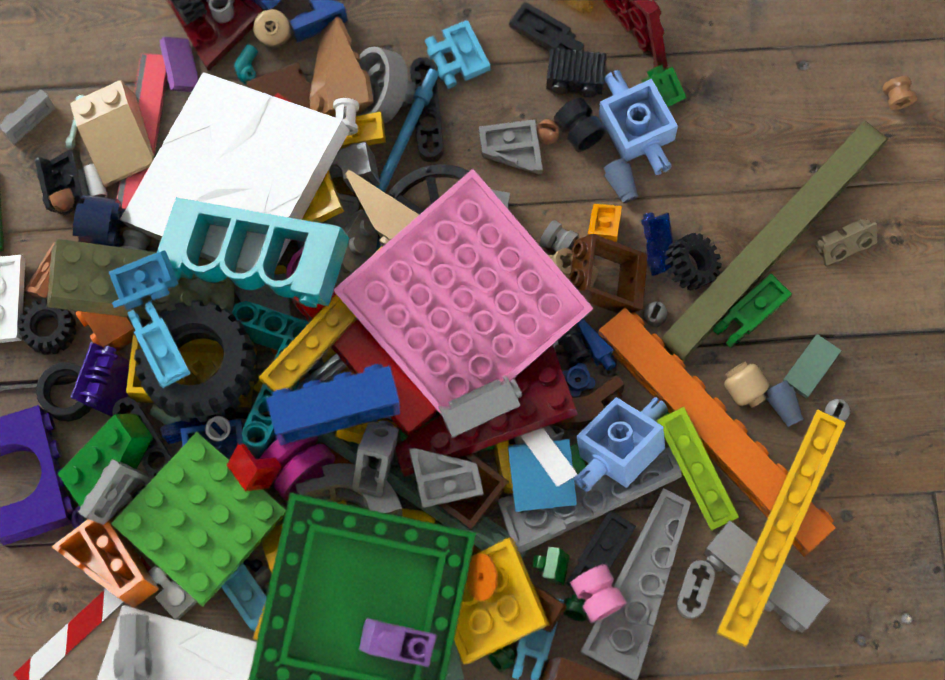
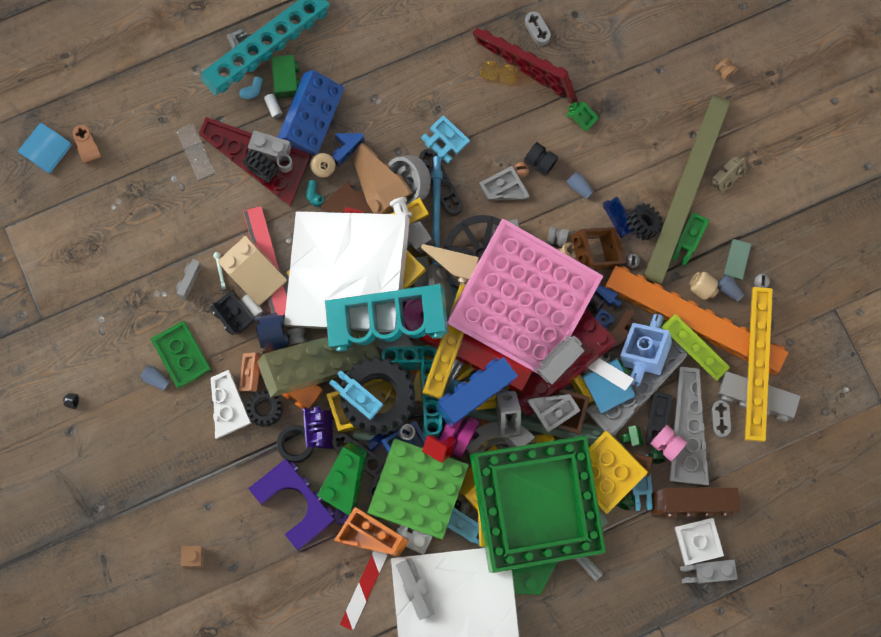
camera: 30 degrees left, 5 degrees up
(62, 200) = (240, 325): nougat hinge -> none
(112, 491) = (360, 495): light grey wing -> none
(143, 278) = (329, 359): dark azure bracket -> none
(179, 63) = (271, 209): medium lavender tile -> none
(397, 642) = (567, 516): medium lavender slope -> none
(481, 577) = (600, 459): orange piece -> none
(544, 29) = (494, 104): black hinge -> none
(576, 72) = (524, 125): black brick -> none
(605, 221) = (582, 216): light orange plate -> none
(638, 121) = (576, 156): light blue brick -> none

